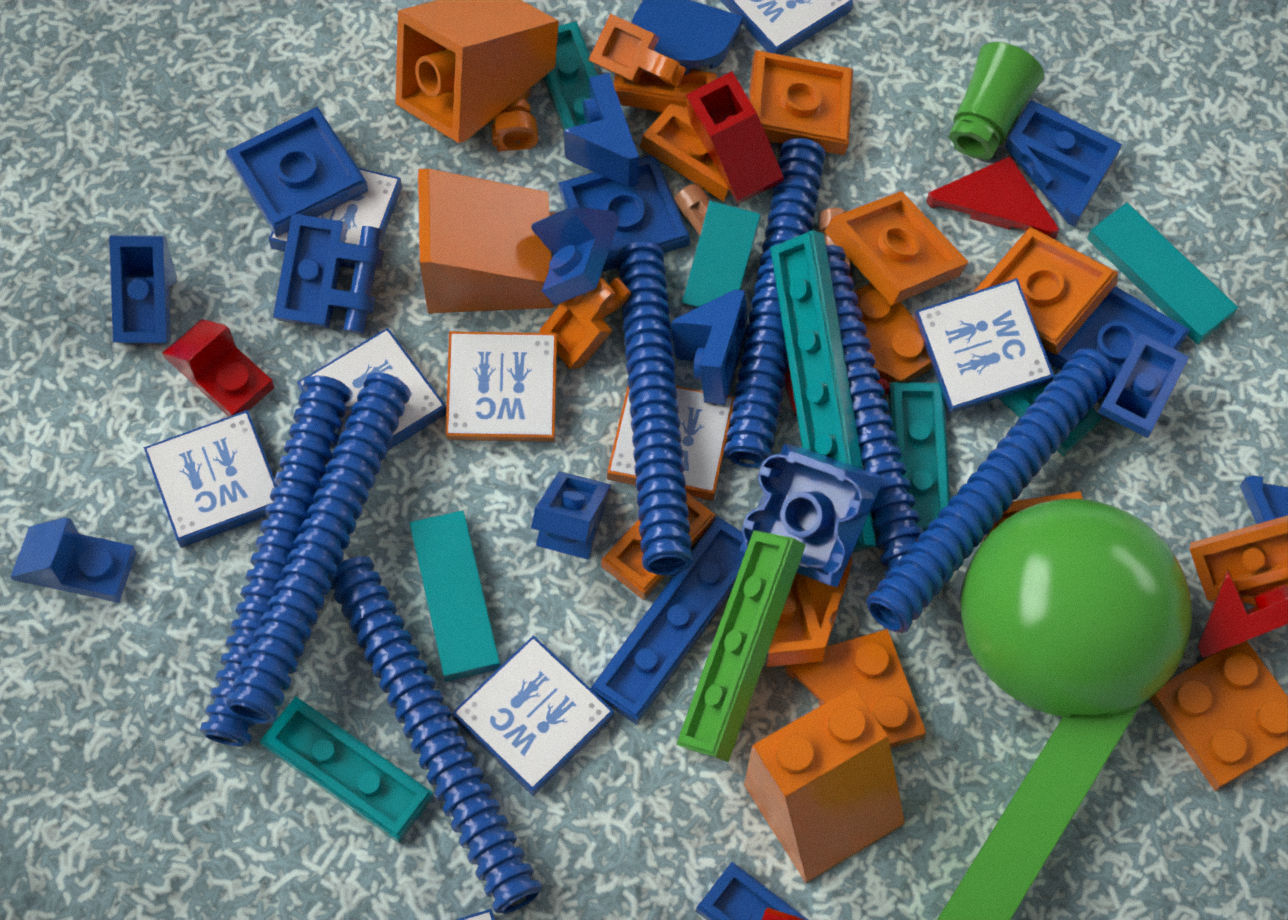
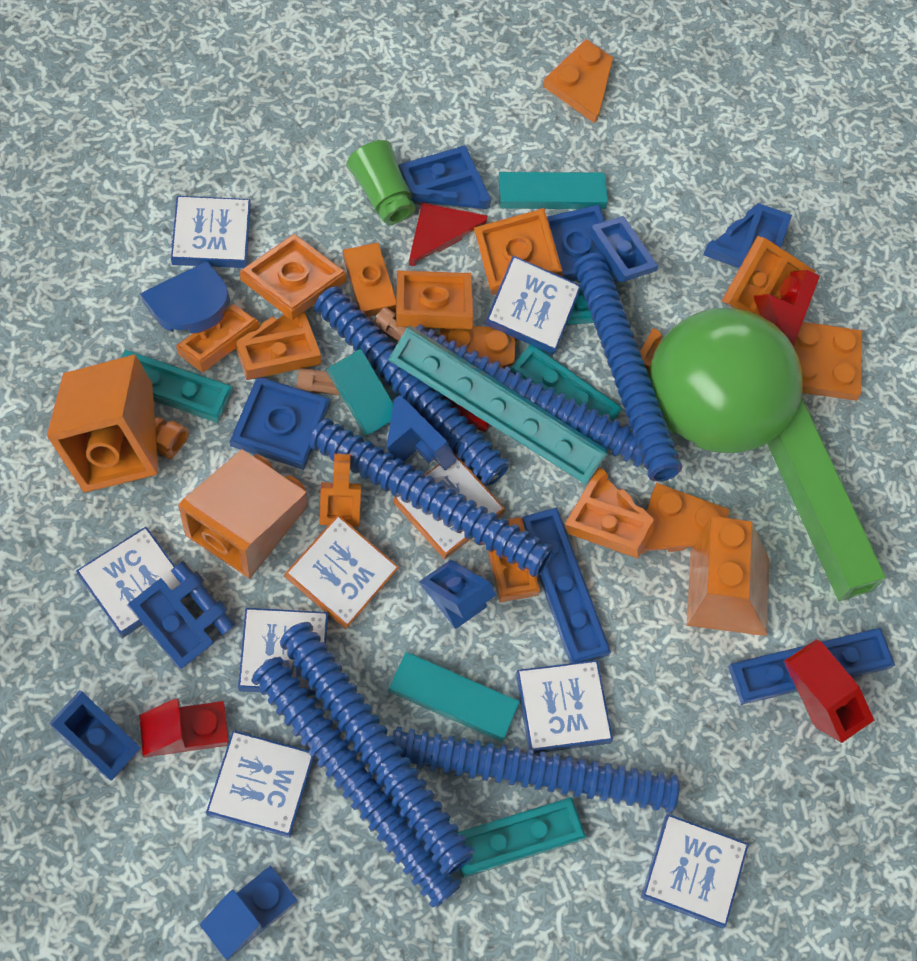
camera: 60 degrees left, 0 degrees up
(297, 170) = (88, 582): blue tile -> none
(580, 248) = (303, 463): blue slope -> none
(605, 139) = (237, 390): blue slope -> none
(630, 51) = (187, 335): orange plate -> none
(733, 137) = (300, 323): red slope -> none
(741, 645) = (617, 561): bright green tile -> none
(816, 504) = (569, 465): blue slope -> none
(869, 171) = (369, 279): none -> orange plate

